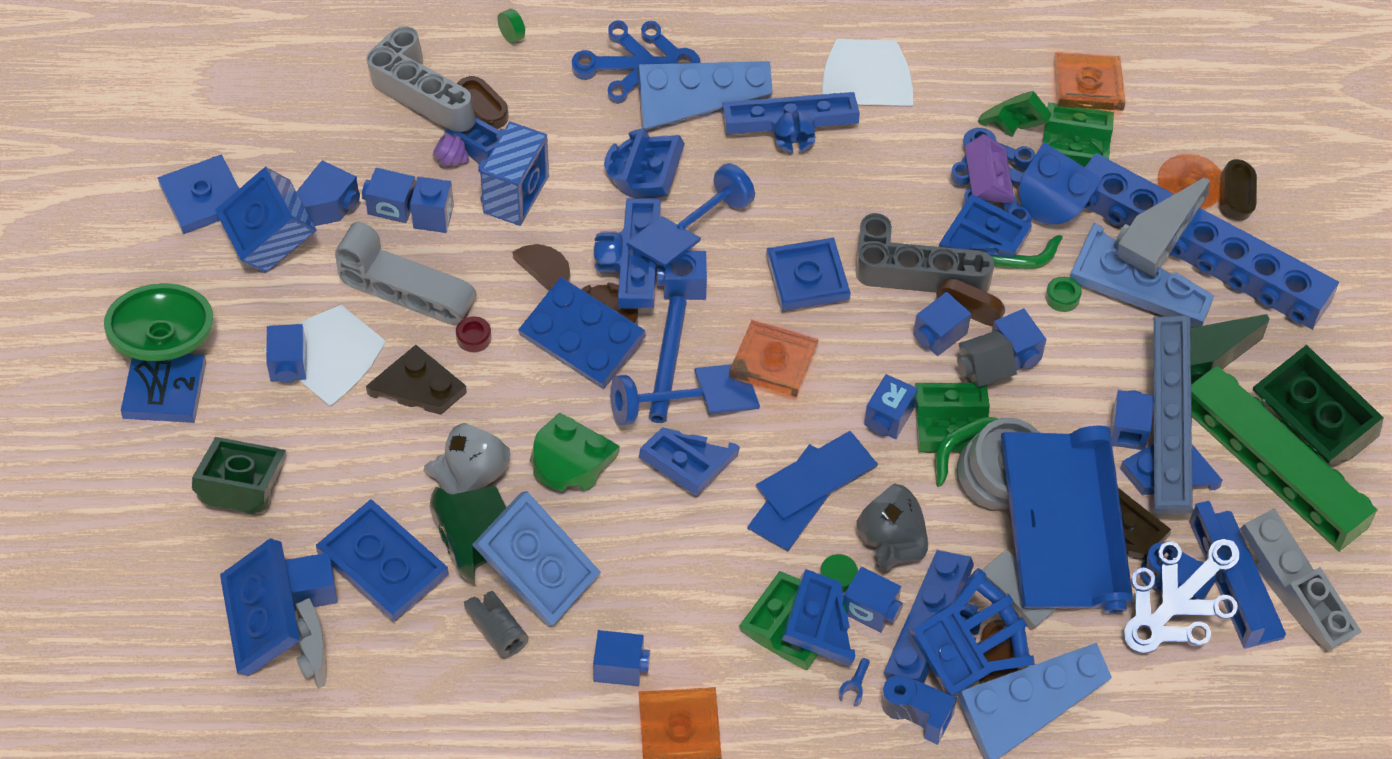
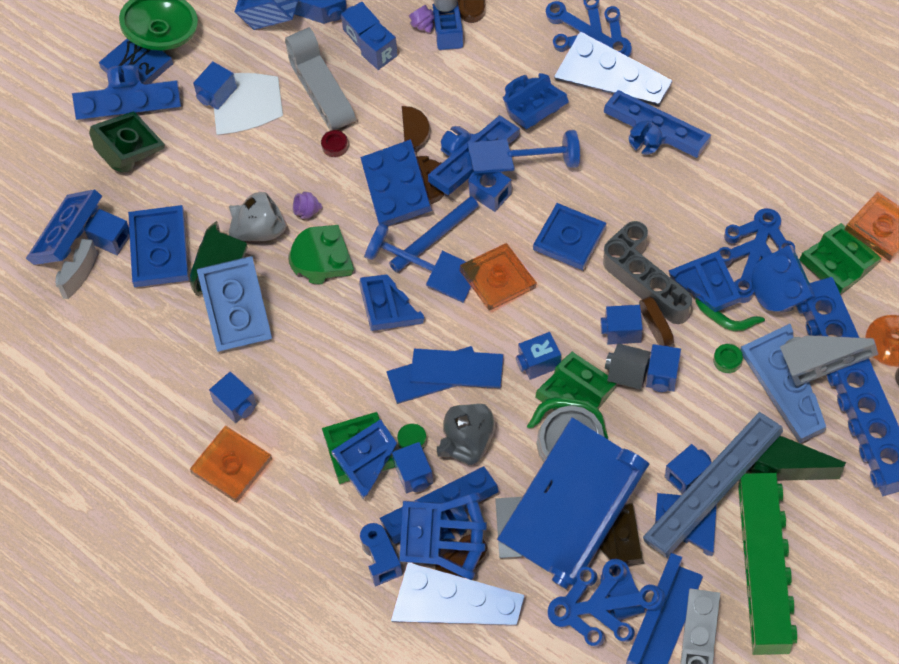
camera: 45 degrees right, 5 degrees up
(191, 425) = (126, 95): none -> blue plate
(418, 382) = (276, 152): dark brown wing -> none
(497, 624) = (185, 330): dark grey hinge -> none
(505, 414) = (306, 205): none -> medium lavender plate
(514, 173) = (440, 55): blue container -> none
(856, 682) = (357, 513): blue hand -> none
(870, 70) = (739, 128): white sticker -> none
(989, 170) = (750, 243): medium lavender slope -> none
(1017, 112) = (808, 216): green slope -> none
(1320, 406) = (819, 549): dark green slope -> none

